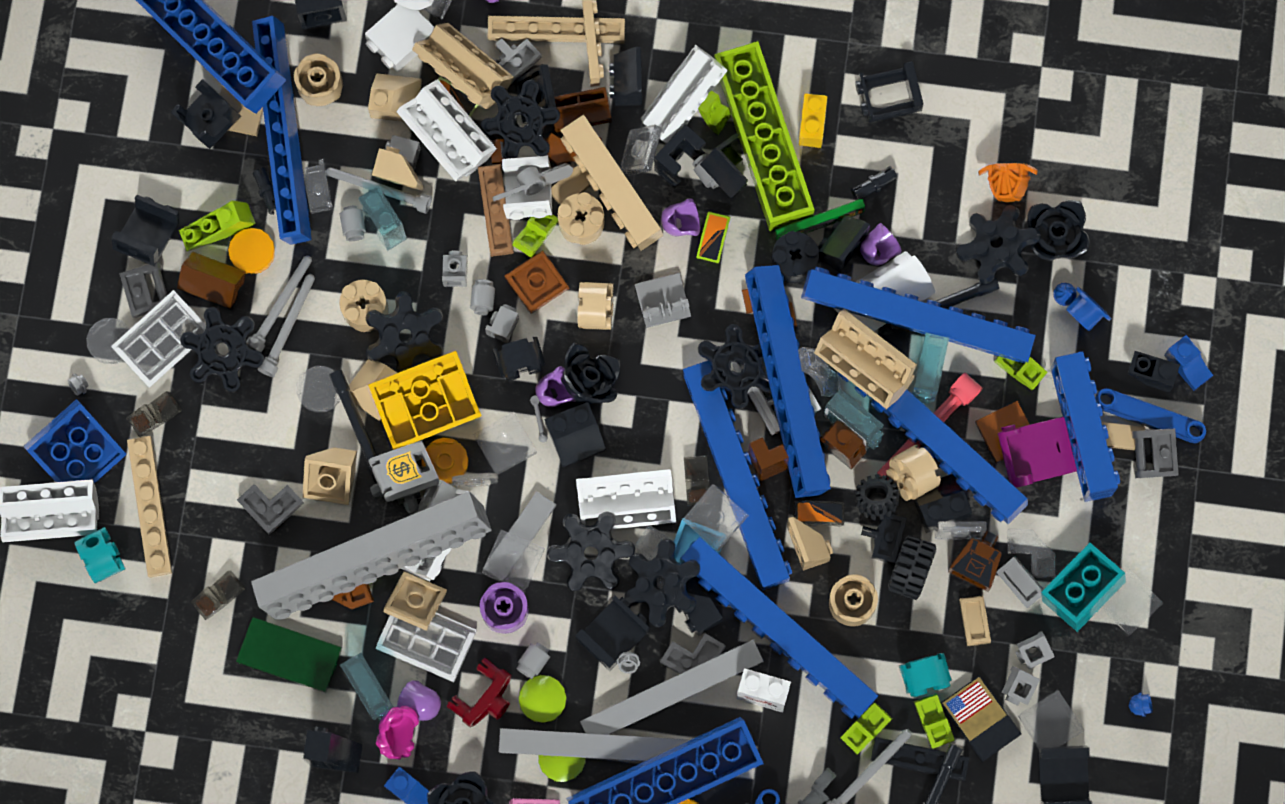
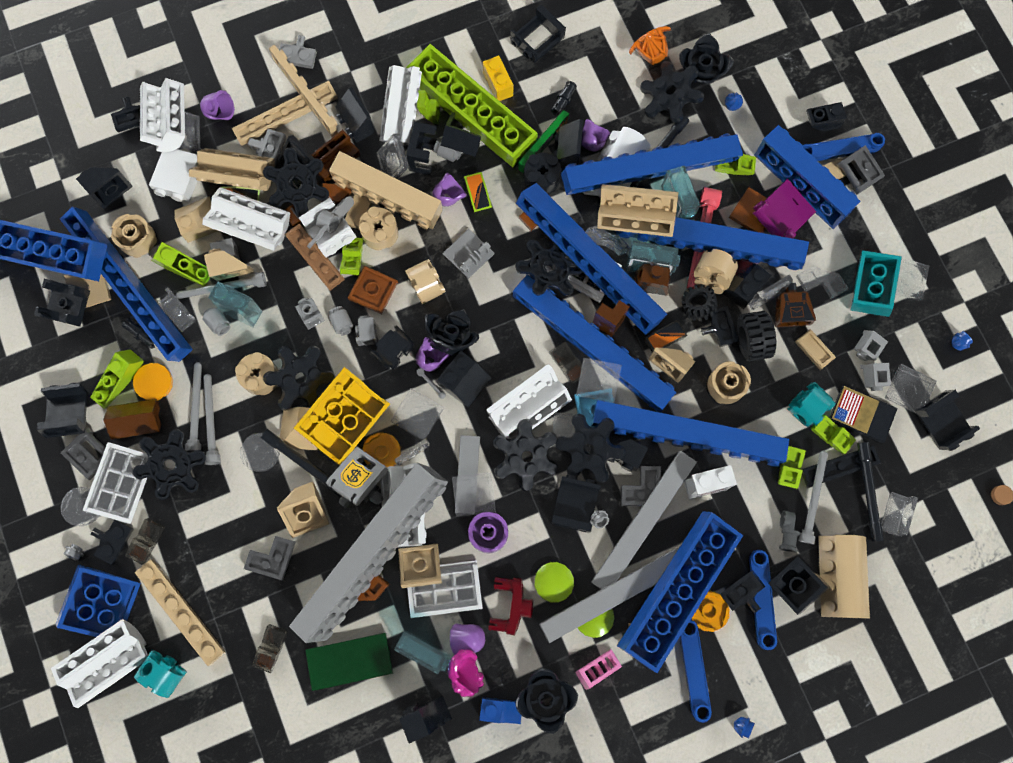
camera: 35 degrees left, 0 degrees up
(121, 394) = (111, 541): none -> black plate
(350, 139) = (180, 264): none -> lime slope
(533, 660) = (531, 558): light grey brick -> none
(1020, 582) = (830, 305): light grey tile -> none
(1086, 310) = (757, 101): blue piece -> none
(1191, 363) = (840, 93): blue arch -> none

